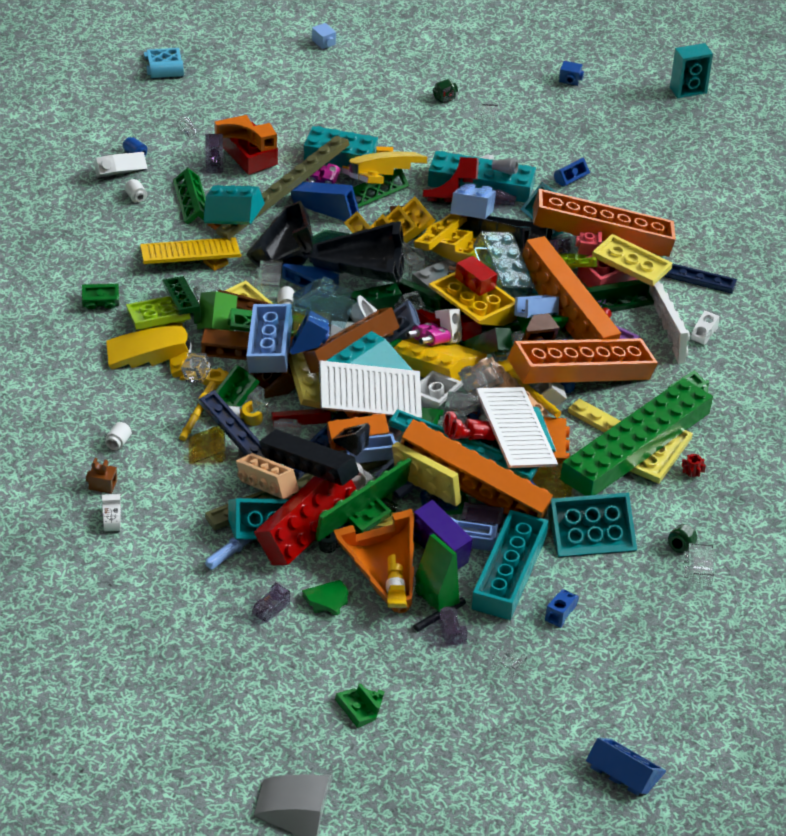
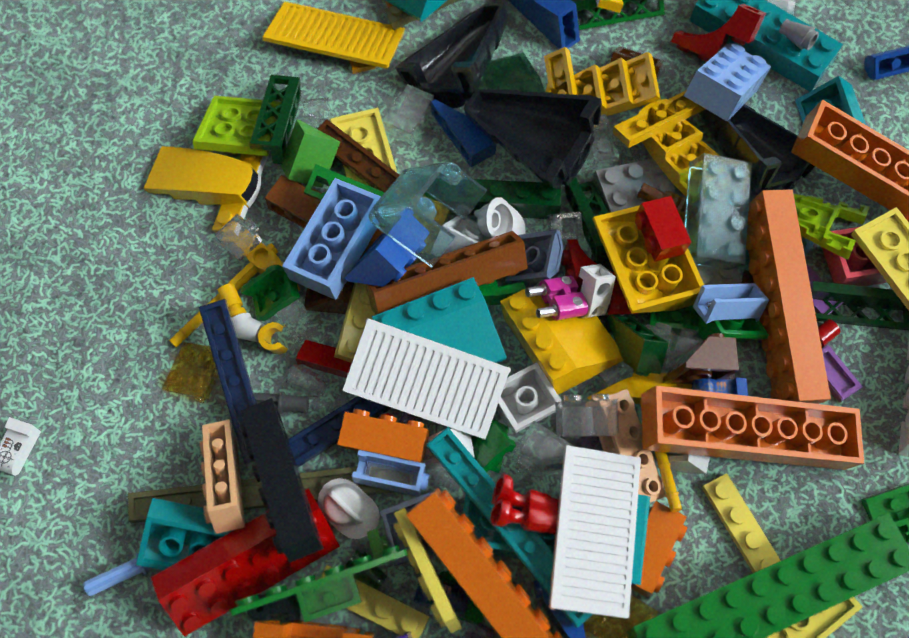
camera: 25 degrees right, 25 degrees up
(100, 295) = (190, 70): green bracket -> none
(102, 477) = (34, 379): dark orange brick -> none
(118, 436) = (91, 313): white brick -> none
(285, 295) = (414, 154): white brick -> none
(354, 438) = (359, 460): black slope -> none
(504, 198) = (779, 76): clear purple cone -> none
(561, 245) = (815, 187): clear purple leg -> none
(588, 242) = (858, 204): coral brick -> none

